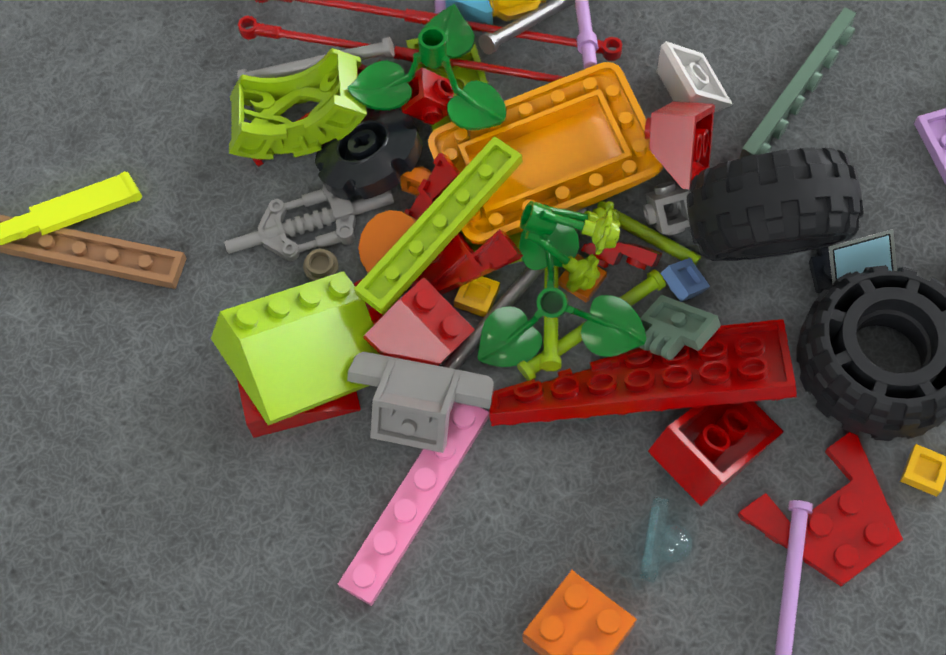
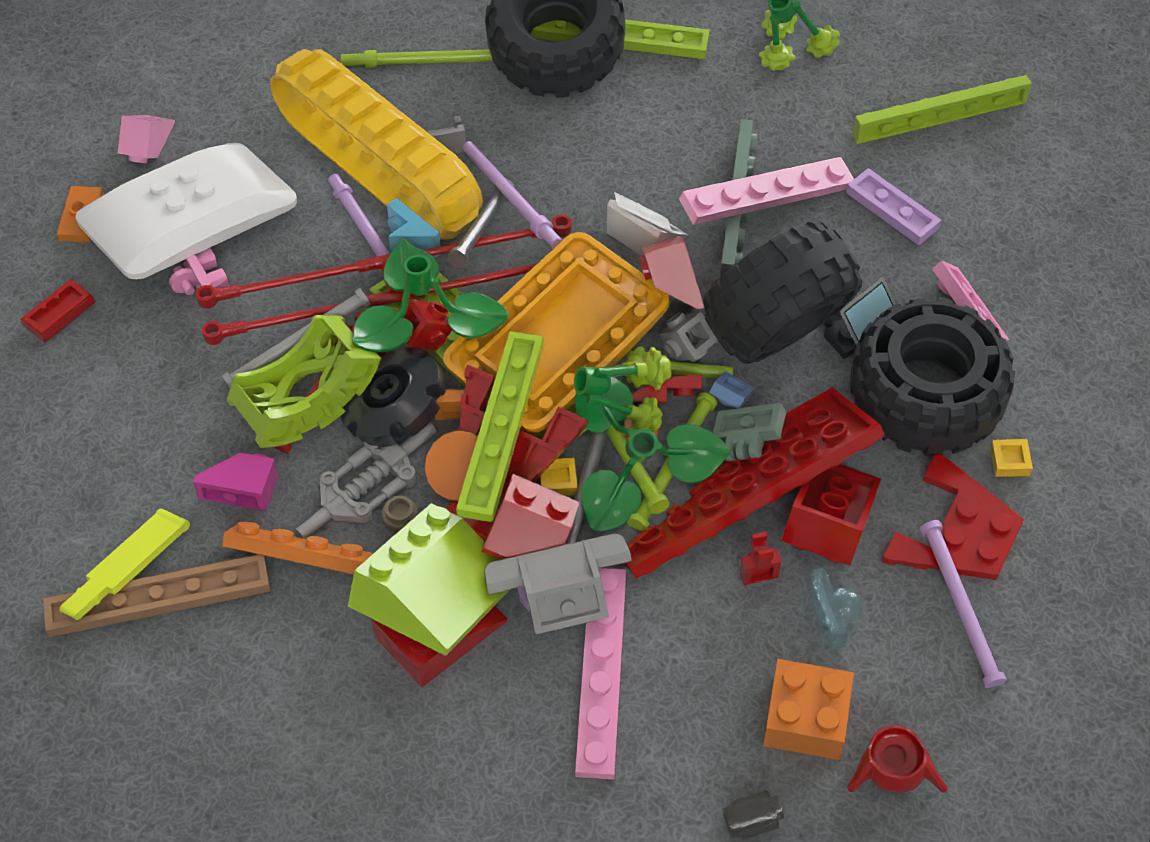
camera: 30 degrees left, 10 degrees down
(201, 176) = (239, 481): none -> dark pink slope
(212, 259) = (286, 546): none -> orange plate
(614, 464) = (761, 563): none -> red plate
(695, 65) = (642, 212): none -> white sticker
(829, 91) = (765, 190): none -> bright pink plate

